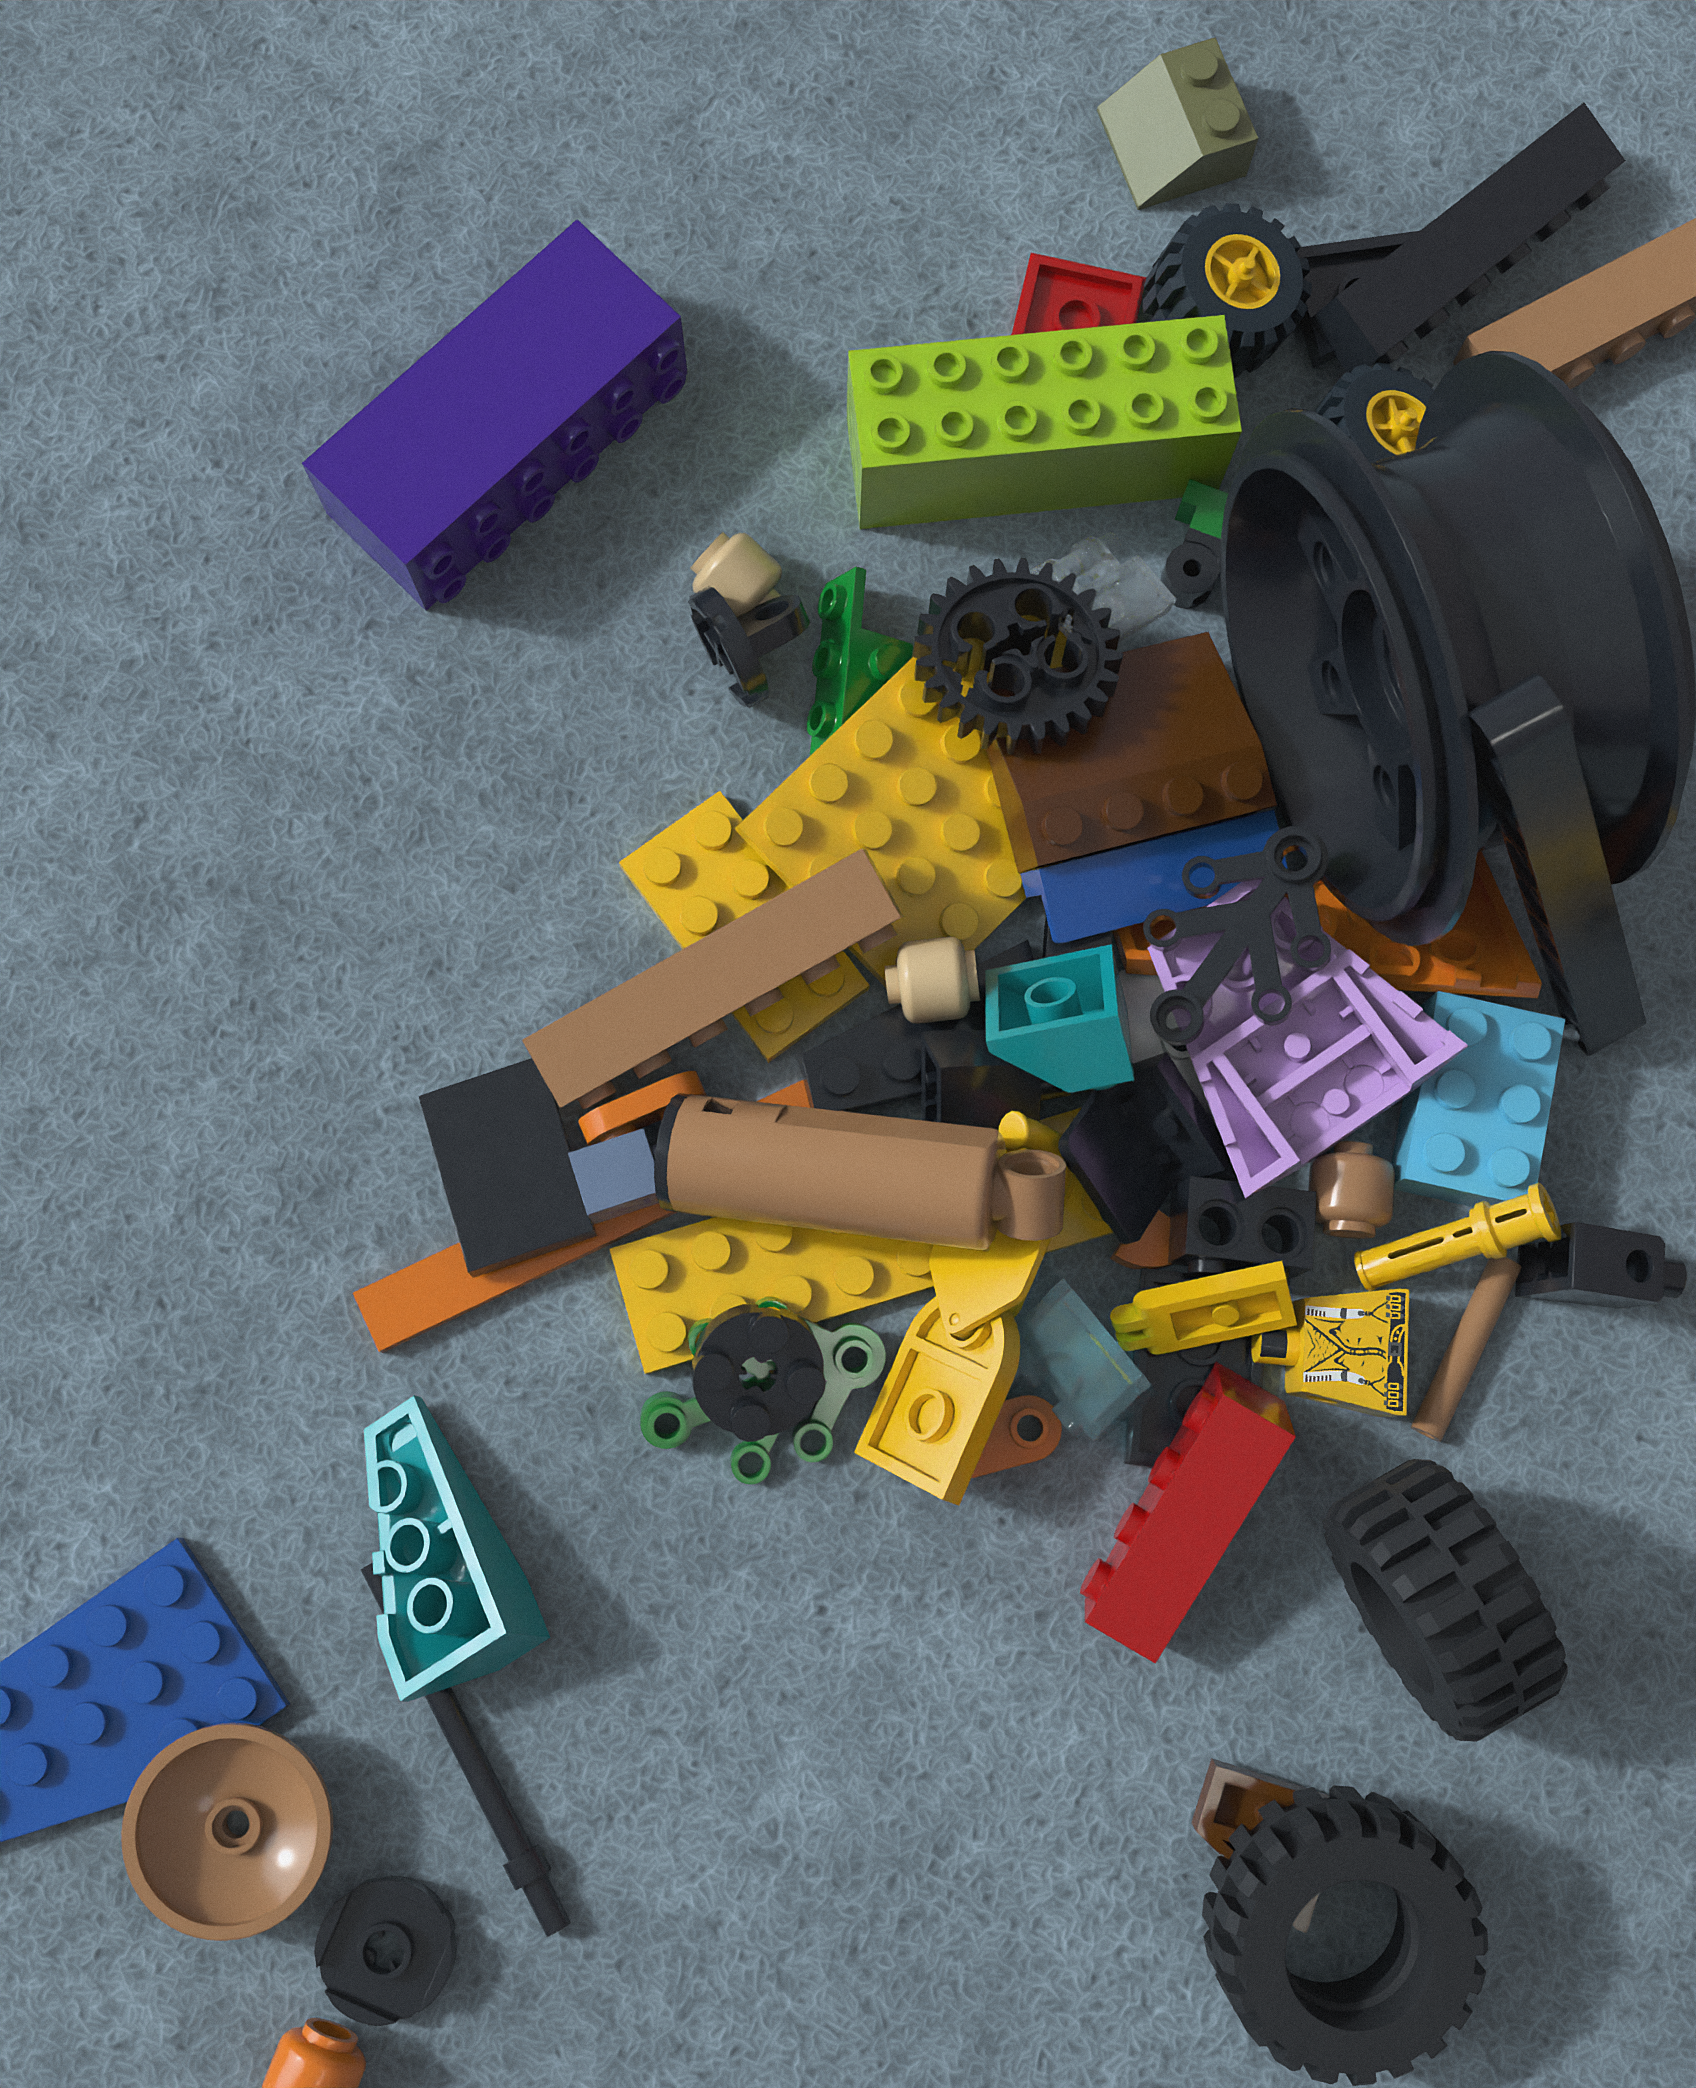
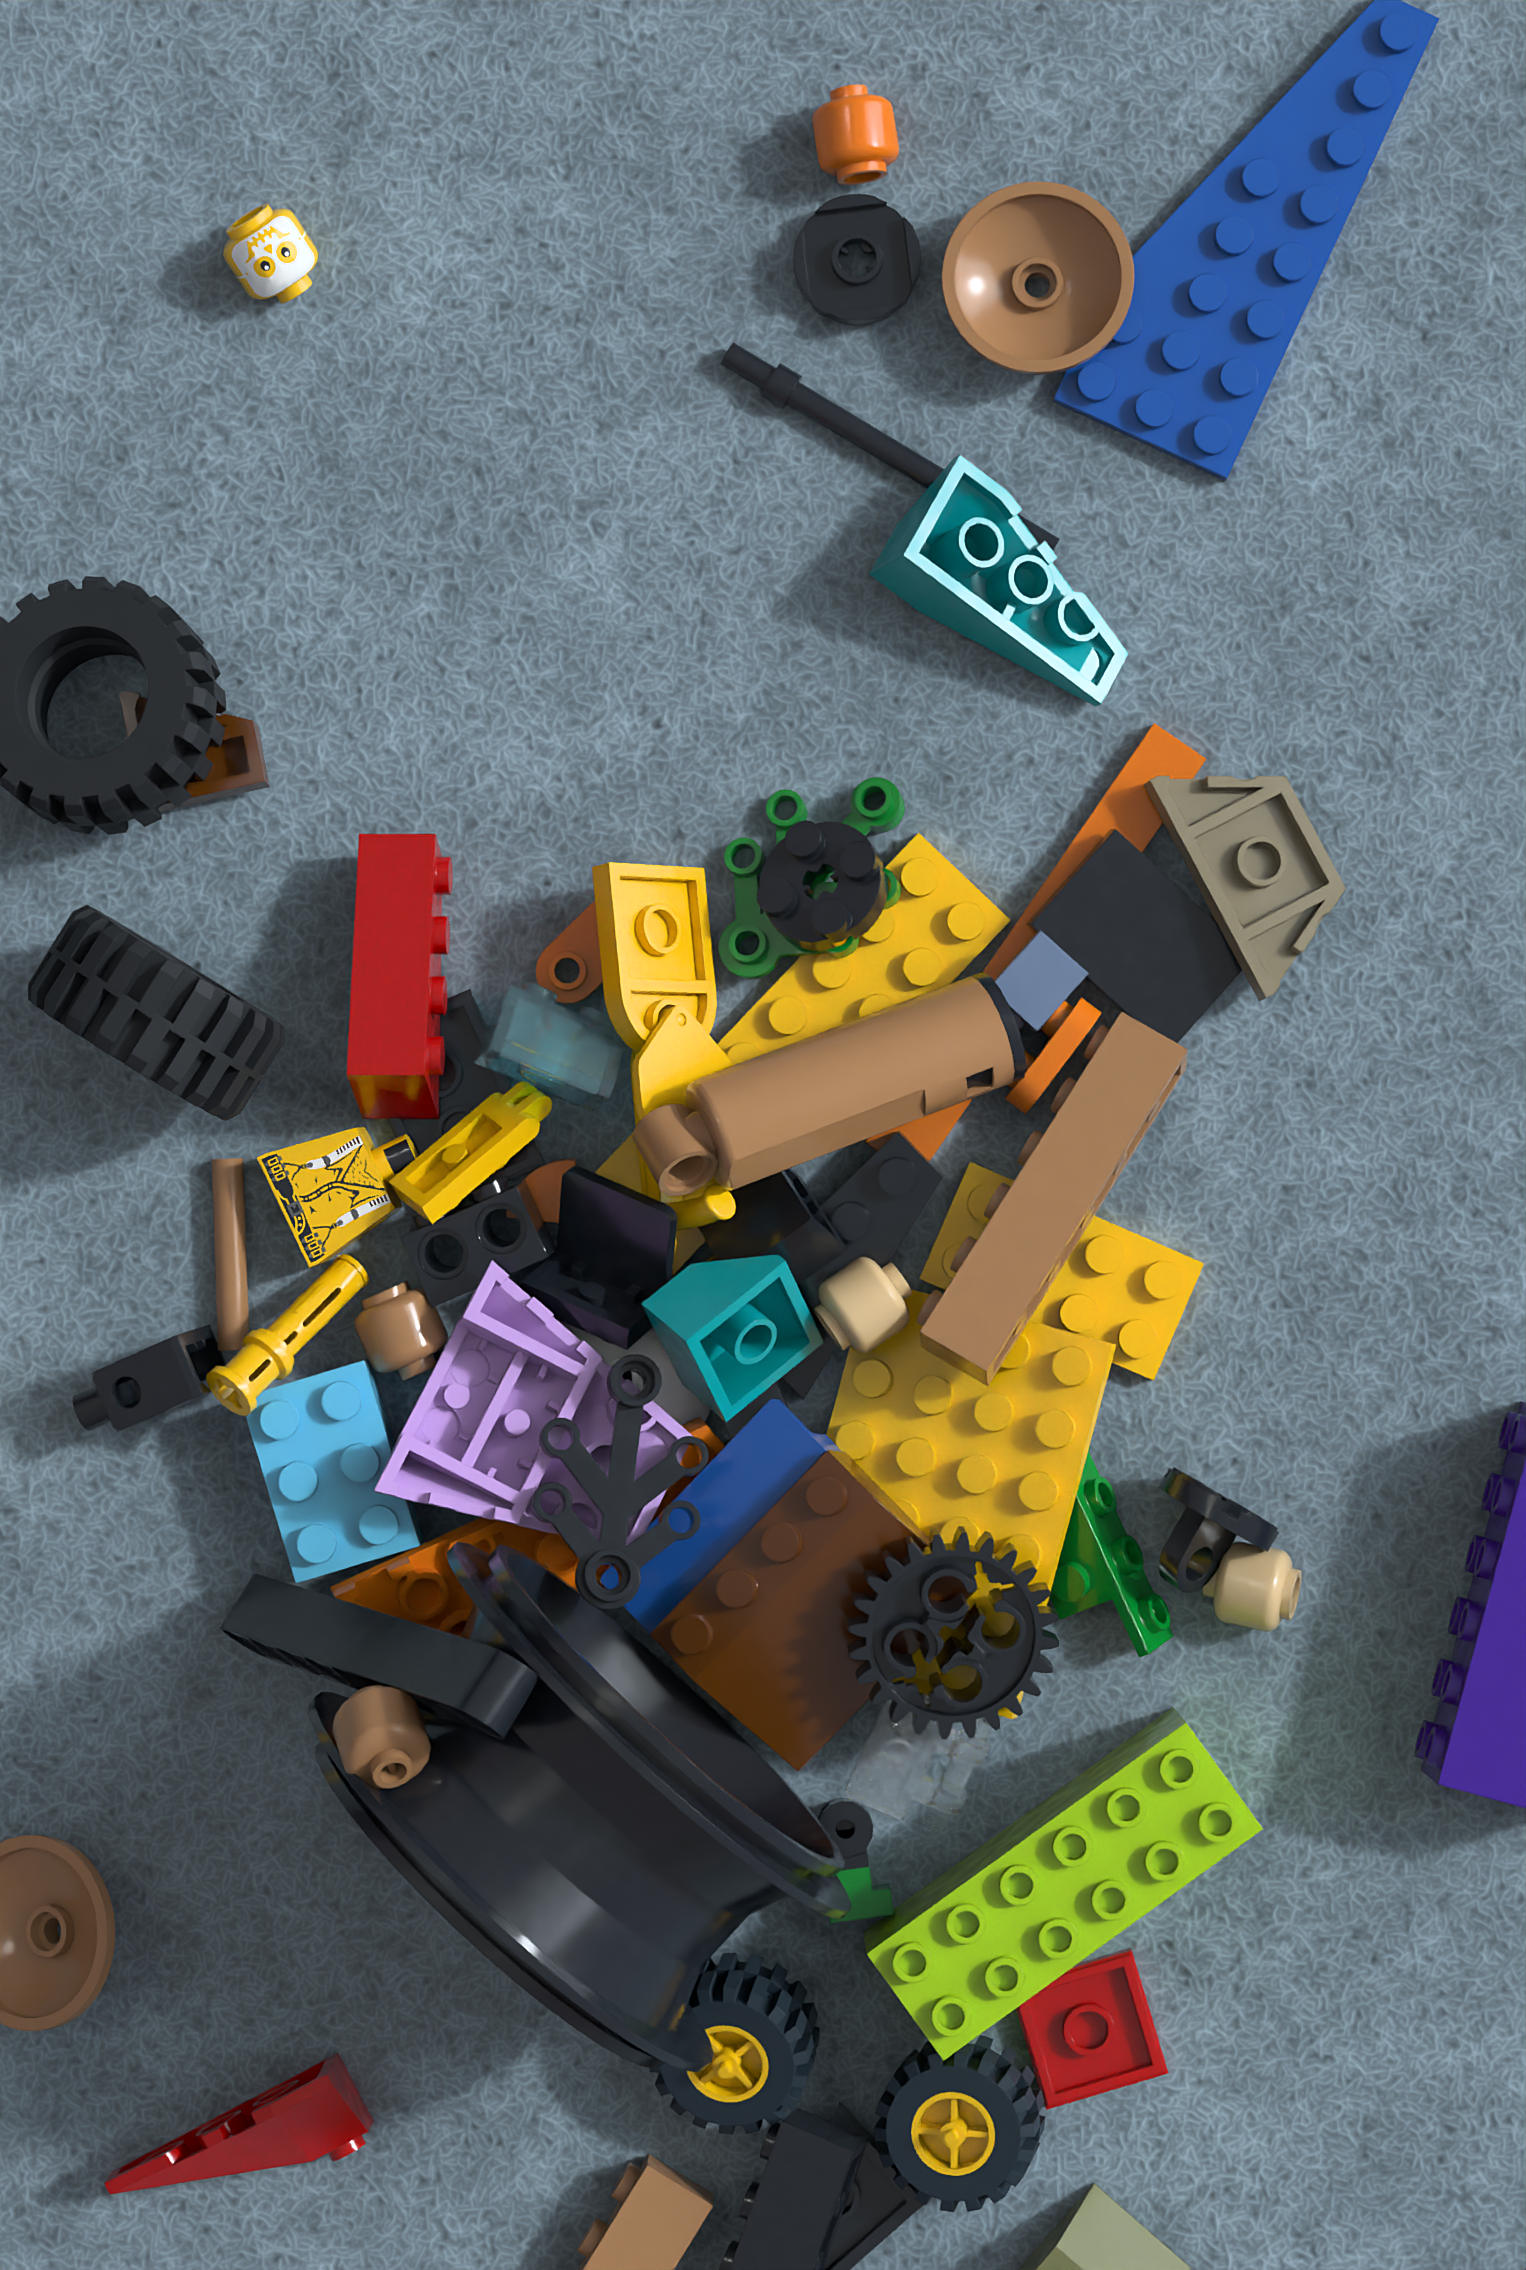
camera: 155 degrees right, 10 degrees up
(369, 1174) = (1253, 866): none -> dark tan wing
(1631, 762) = (381, 1736): none -> medium nougat head

